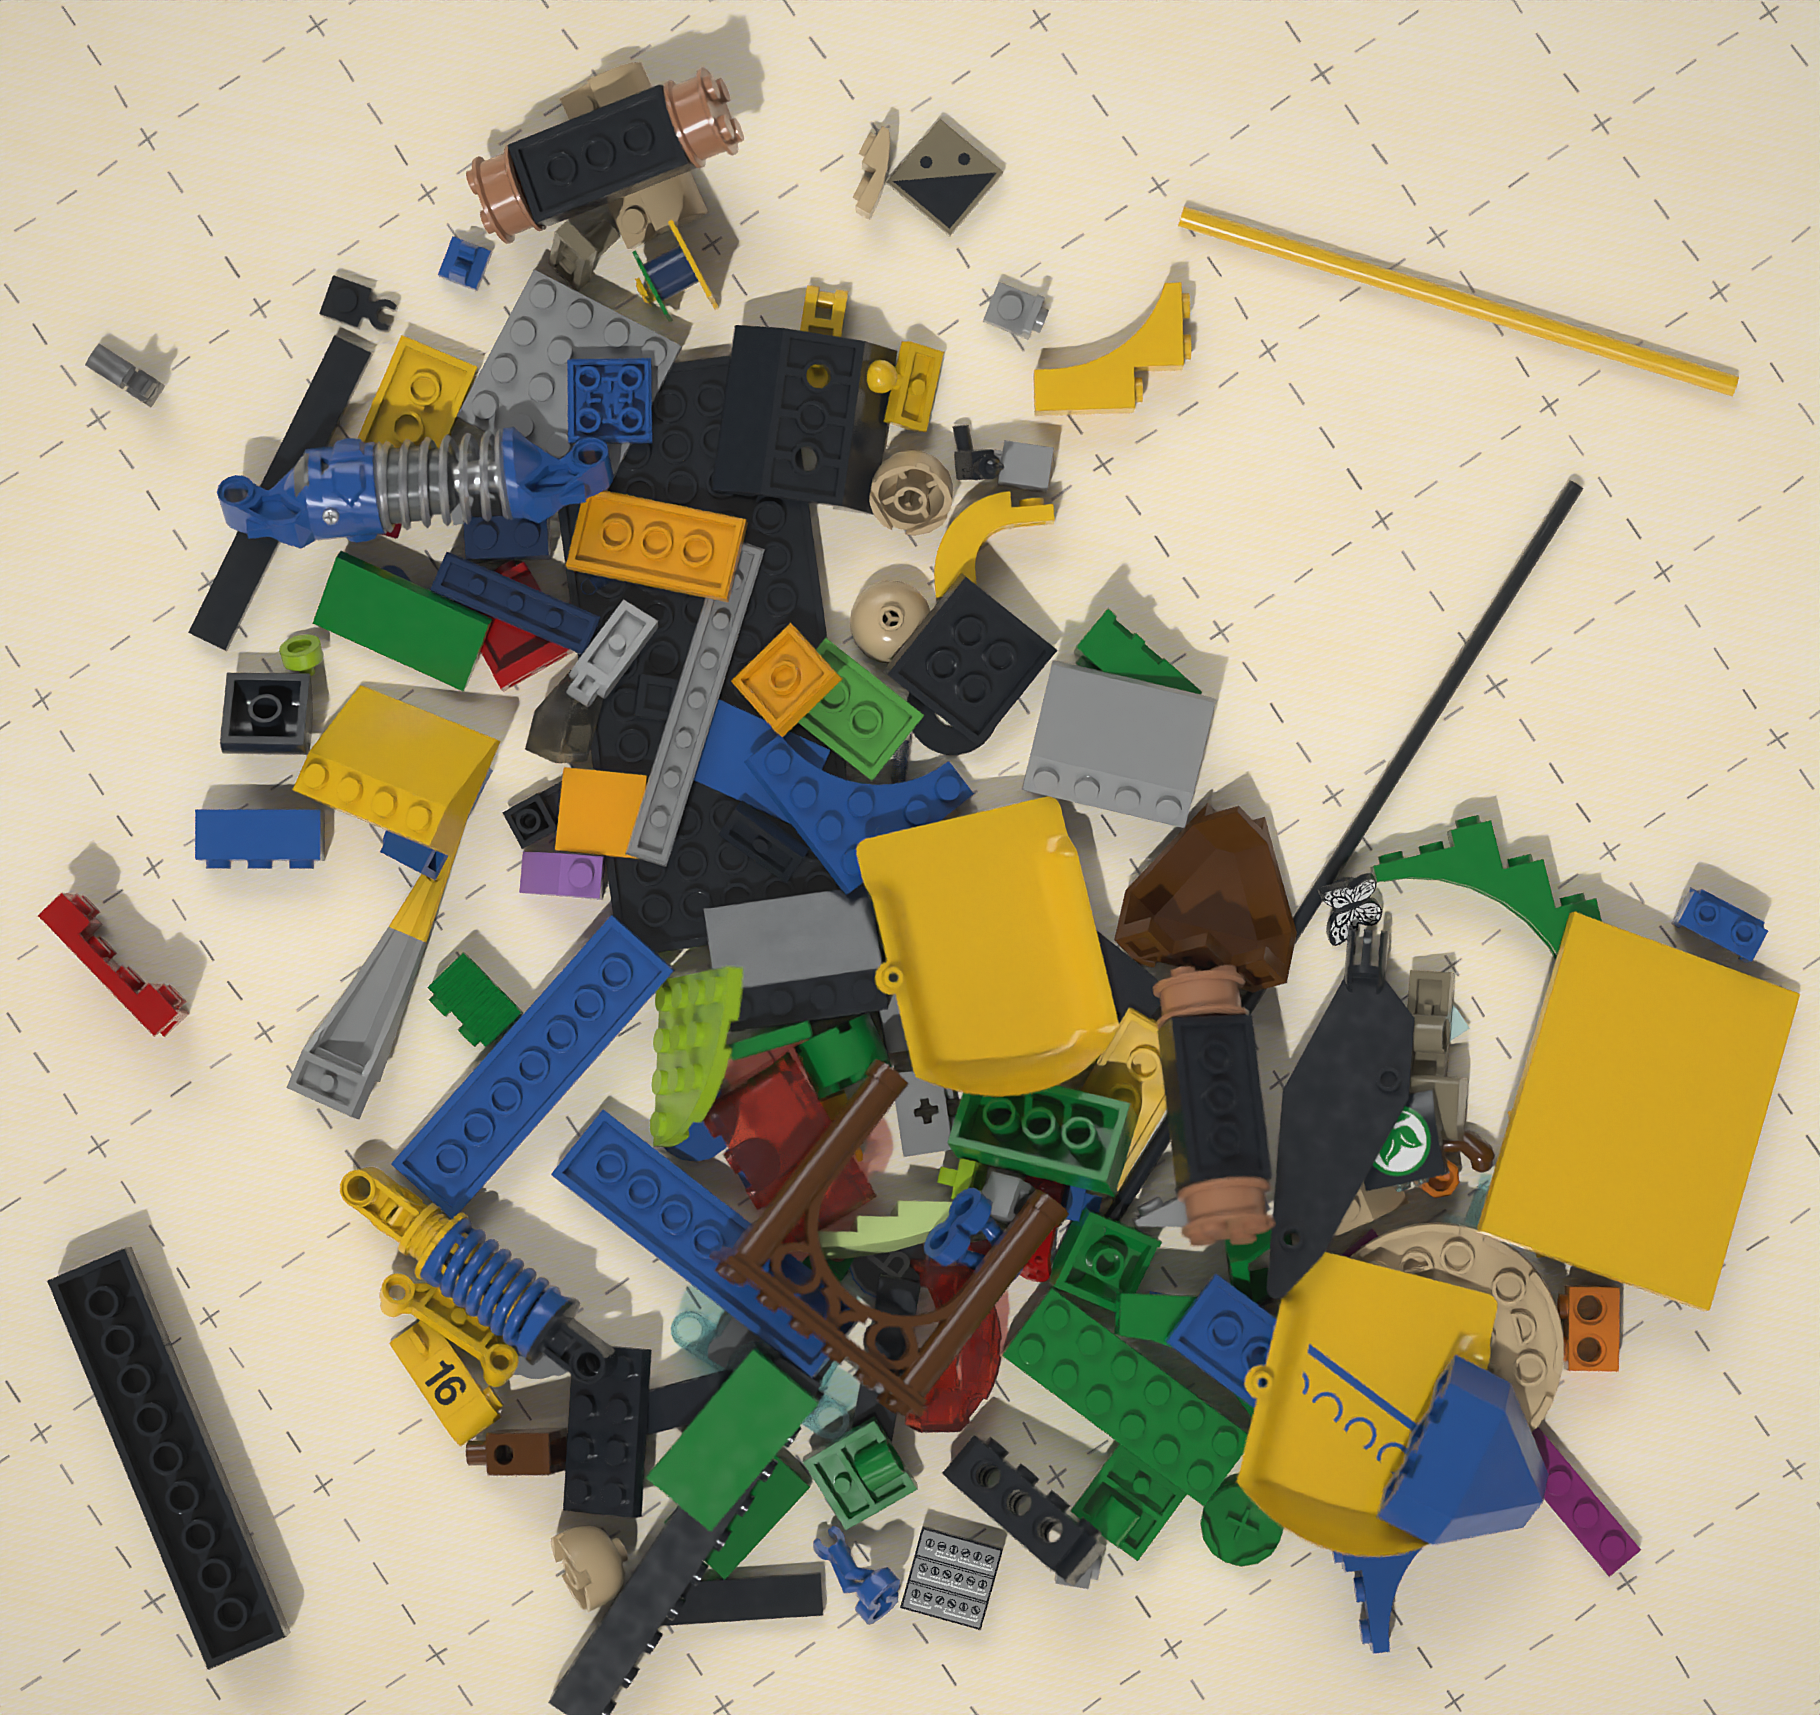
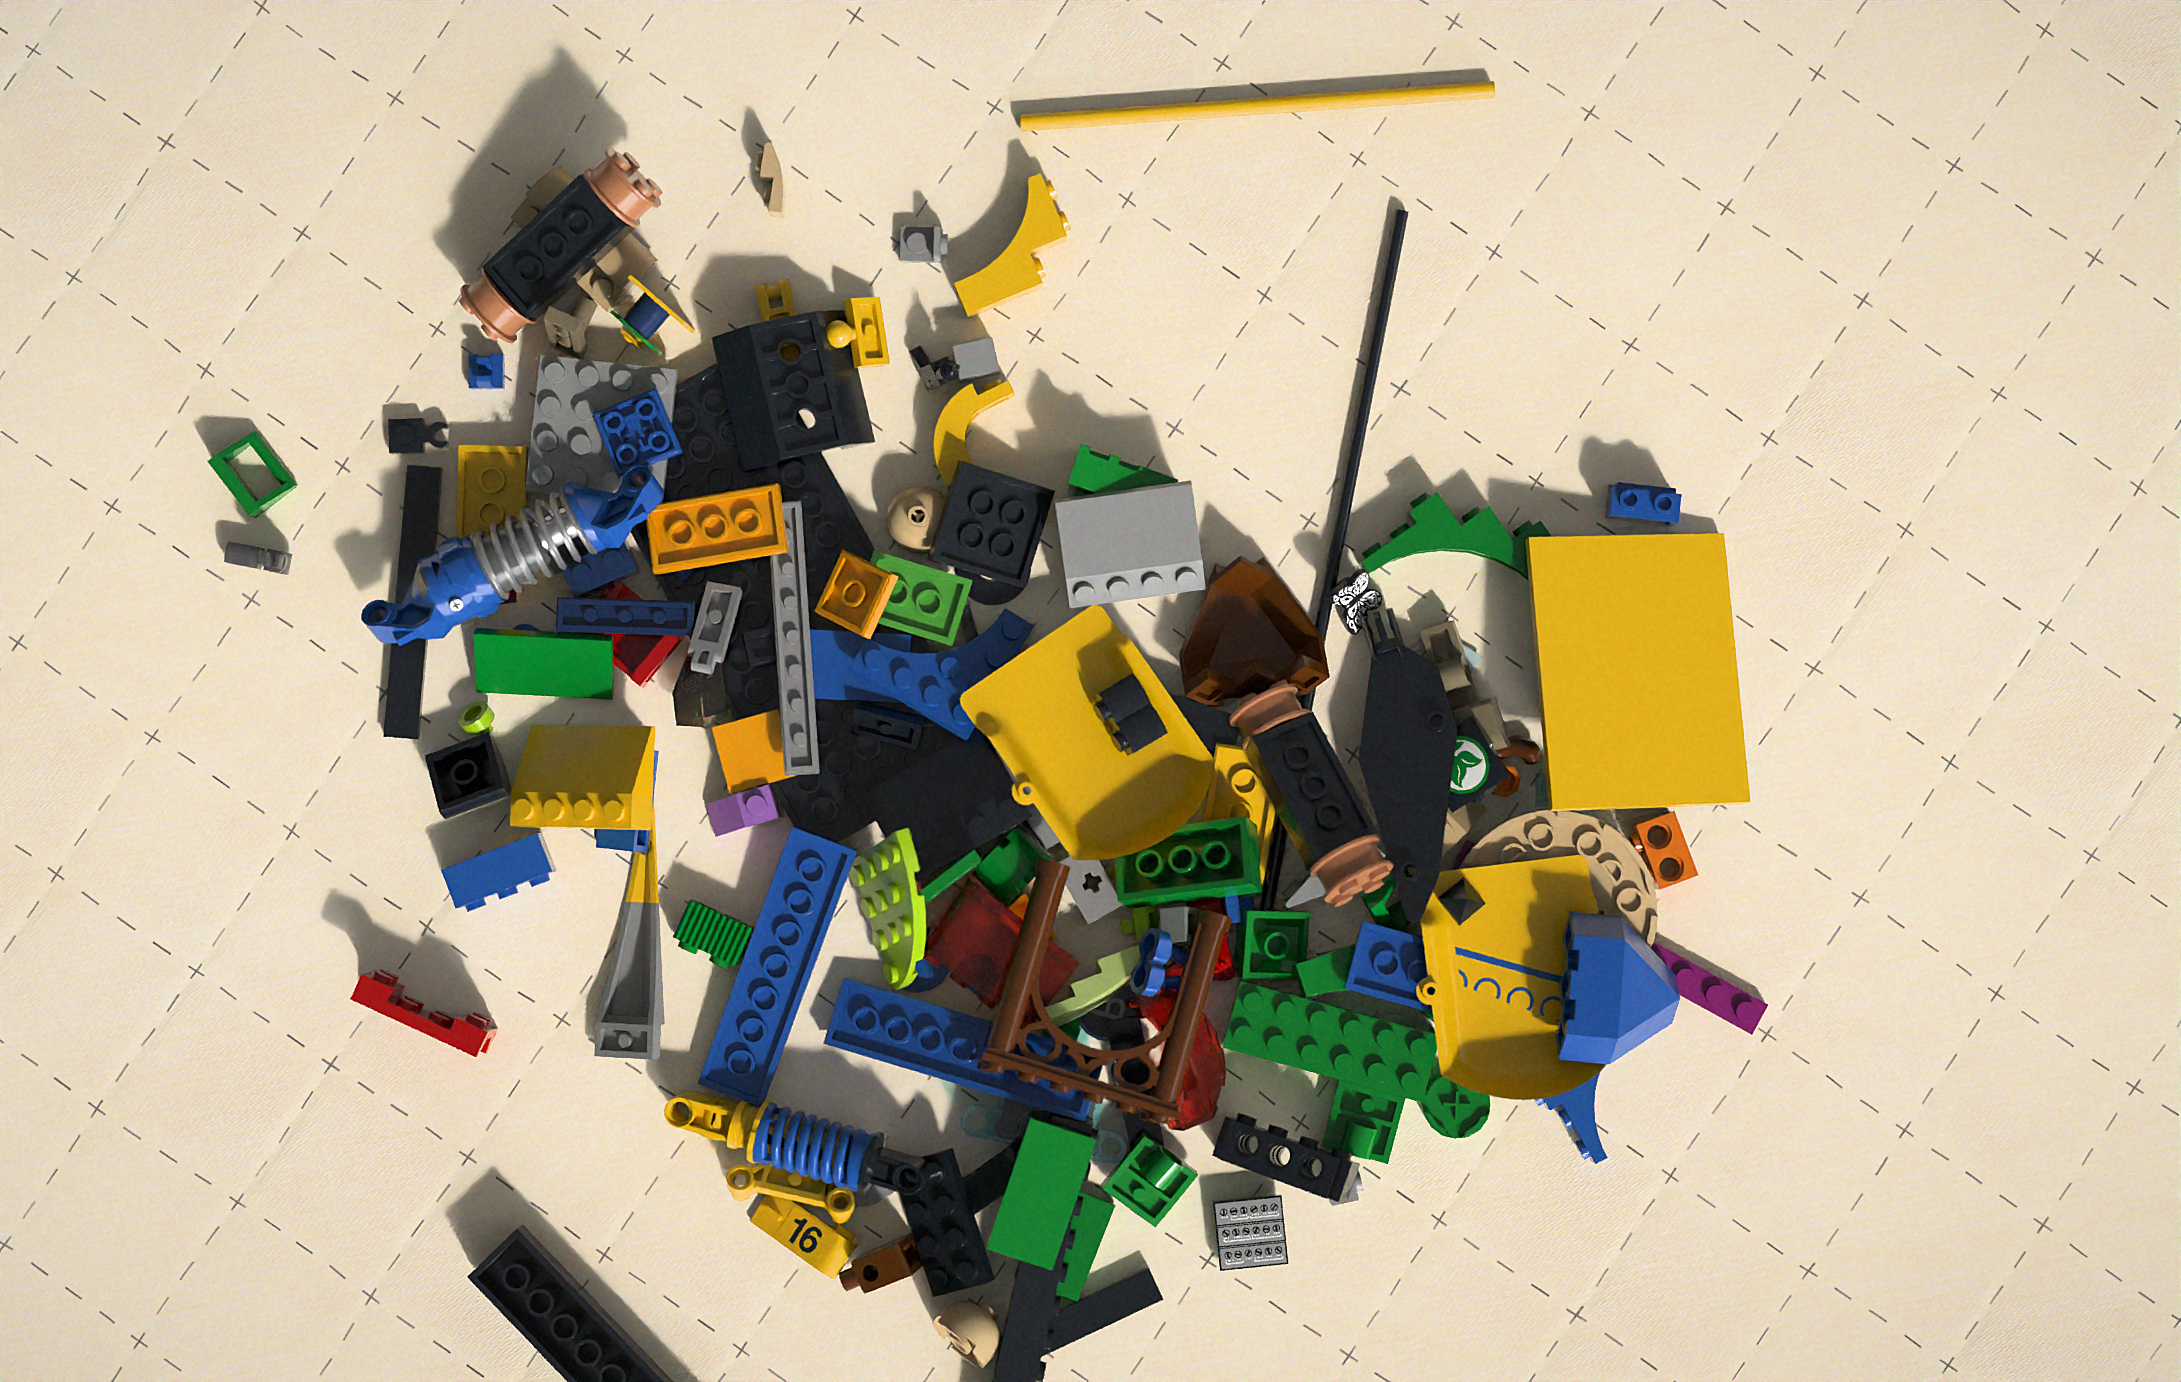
camera: 25 degrees left, 0 degrees up
(133, 285) = (237, 486): none -> green tile
(535, 816) = (704, 774): black slope -> none
(879, 1587) = (1196, 1263): blue piece -> none
(911, 492) = (896, 413): tan cylinder -> none
(945, 177) = (828, 163): tile -> none
(1042, 937) = (1129, 715): none -> black brick
(1336, 1294) = (1461, 901): none -> black slope

